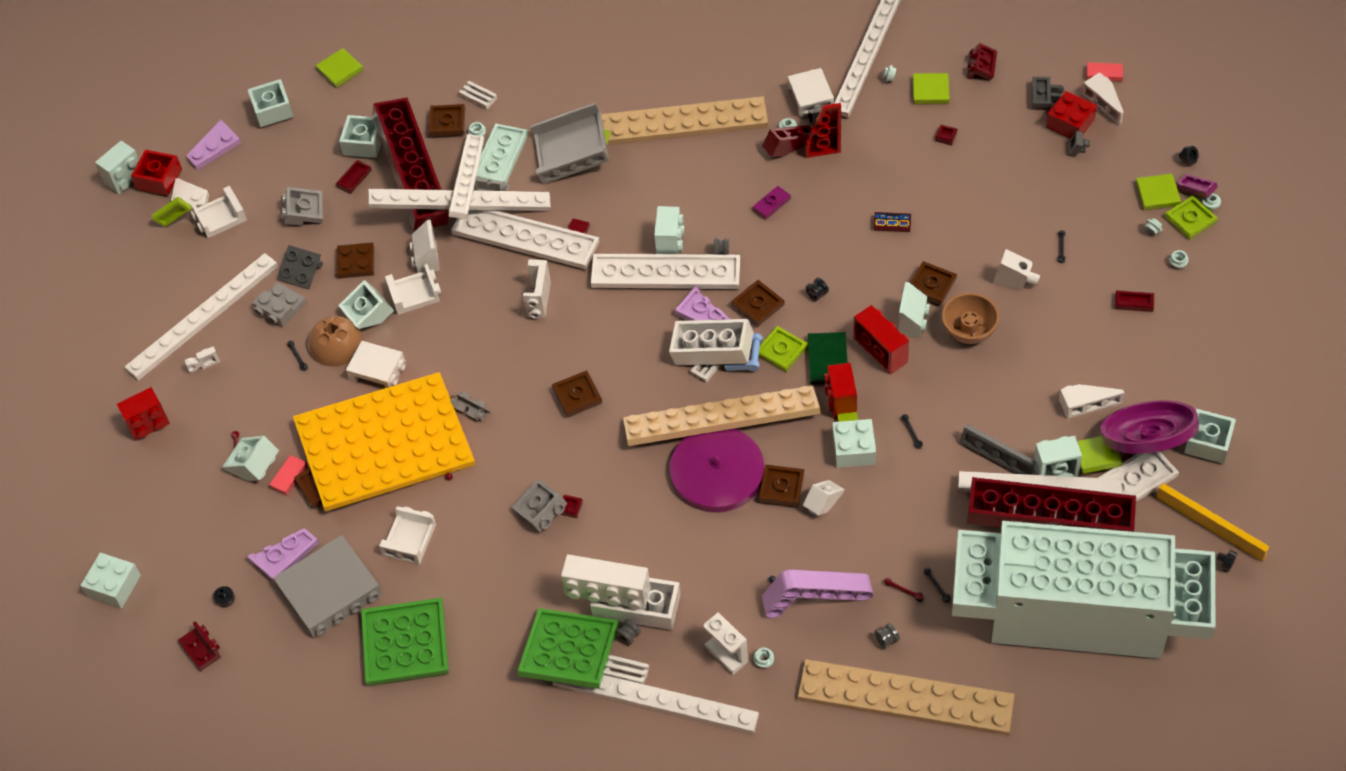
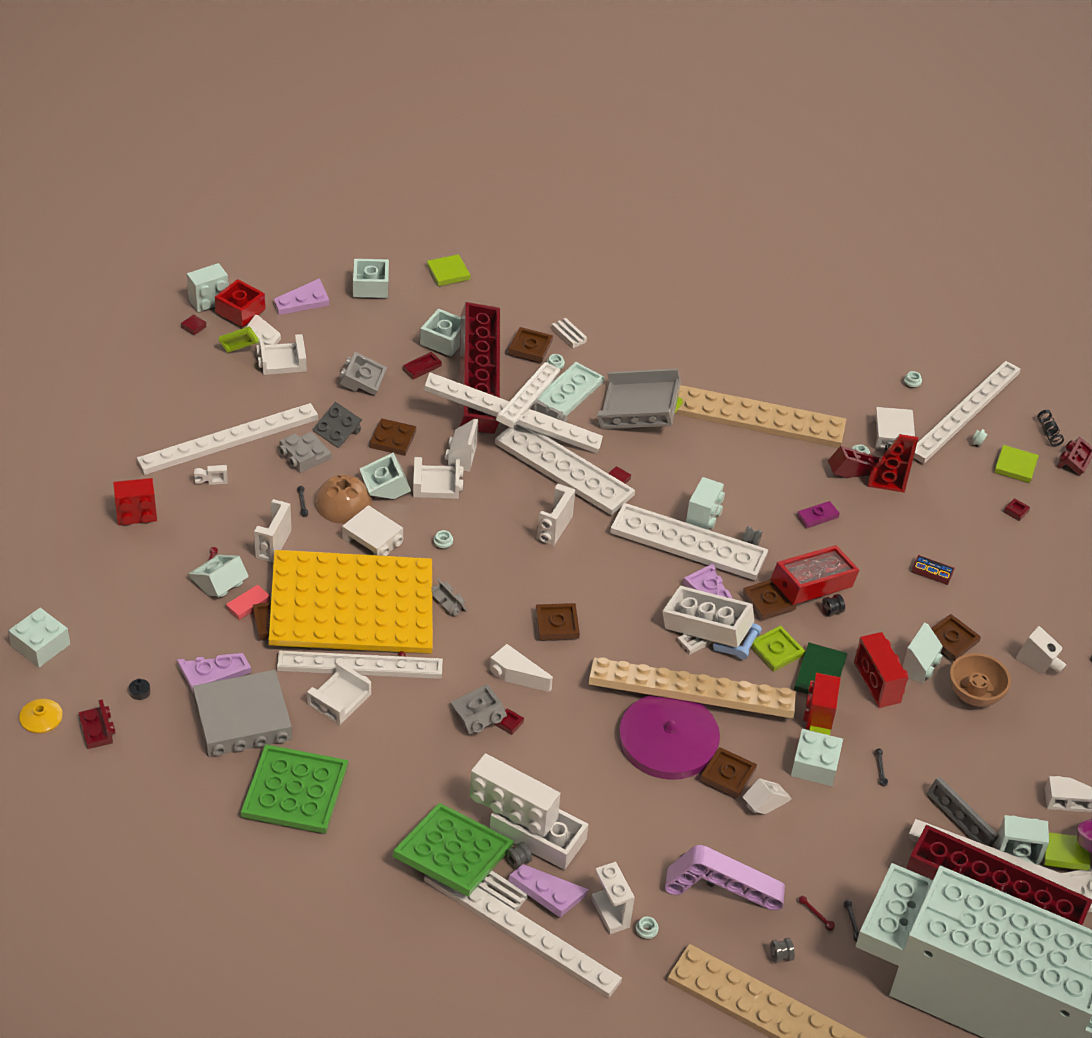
camera: 10 degrees right, 10 degrees down
(120, 209) = (193, 324): none -> dark red tile
(146, 661) = (40, 716): none -> yellow dish
(286, 408) = (276, 535): none -> white panel
(415, 499) = (362, 664): none -> white tile
(442, 344) = (443, 539): none -> light aqua plate
(558, 453) = (519, 670): none -> white slope
(665, 654) = (548, 890): none -> lavender wing
(790, 266) = (814, 574): none -> red brick
(810, 34) = (913, 379): none -> light aqua plate
(949, 41) = (1050, 432): none -> black piece

